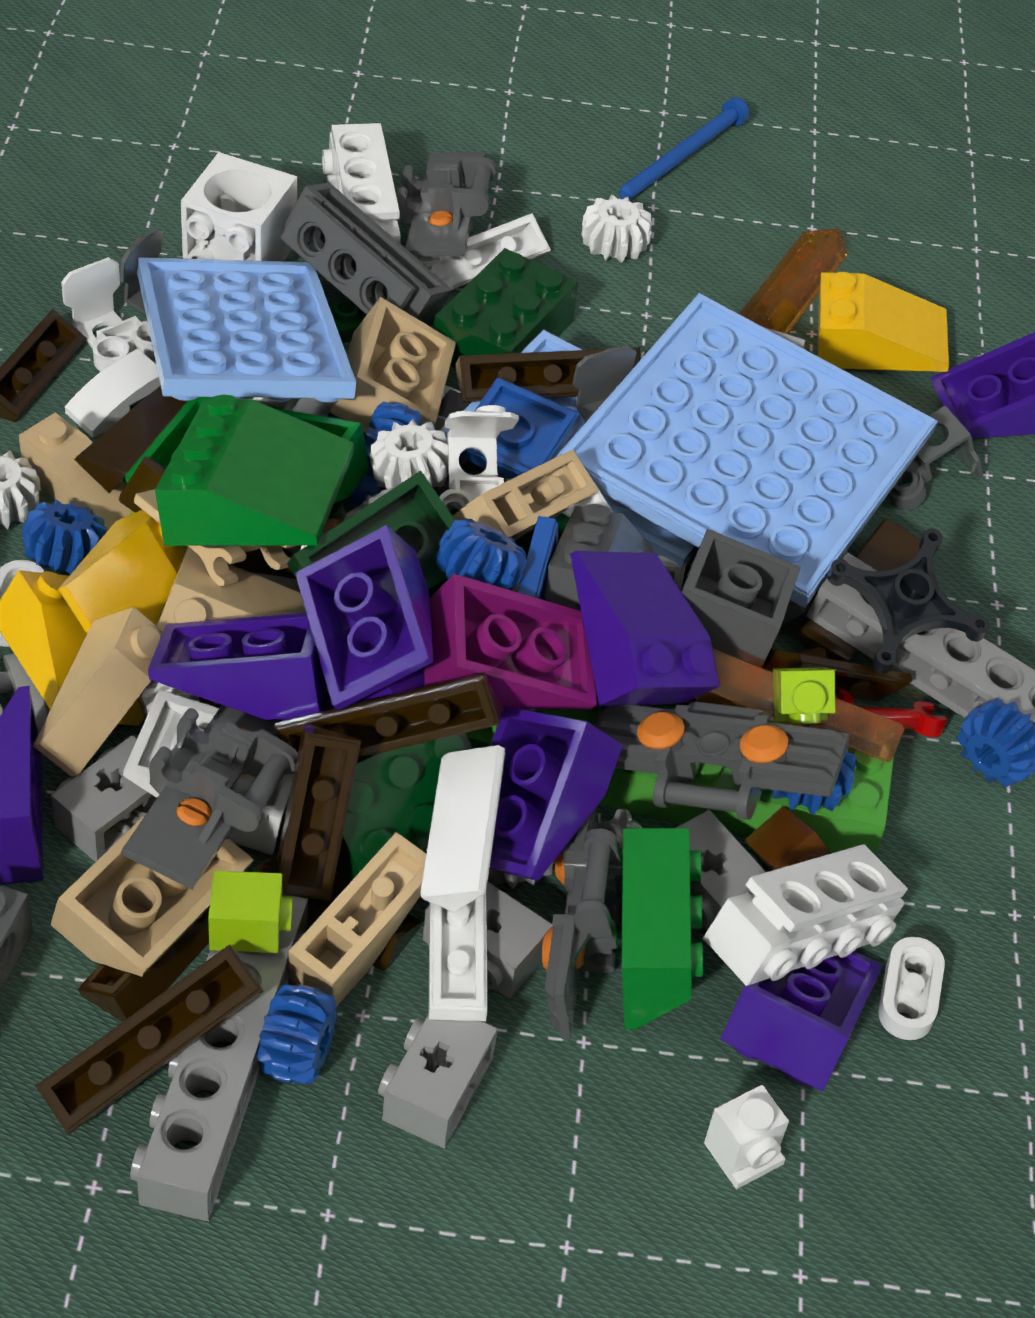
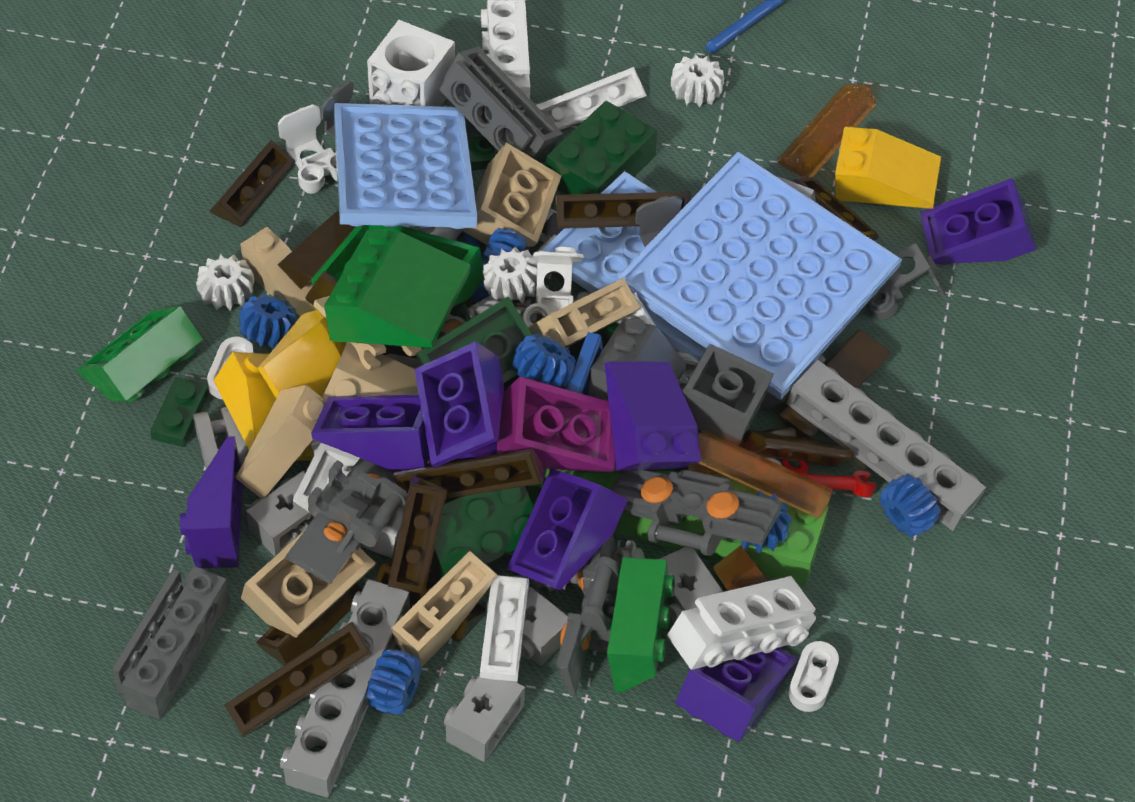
camera: 10 degrees right, 5 degrees up
(111, 392) = (306, 210): white slope -> none
(248, 911) = (366, 599): lime brick -> none
(444, 202) = (567, 56): dark grey piece -> none
(463, 827) = (513, 550): white slope -> none
(536, 437) = (604, 253): blue tile -> none
(747, 1136) = (682, 768): white brick -> none
(803, 694) = (758, 469): lime brick -> none
(907, 600) = (853, 399): black piece -> none

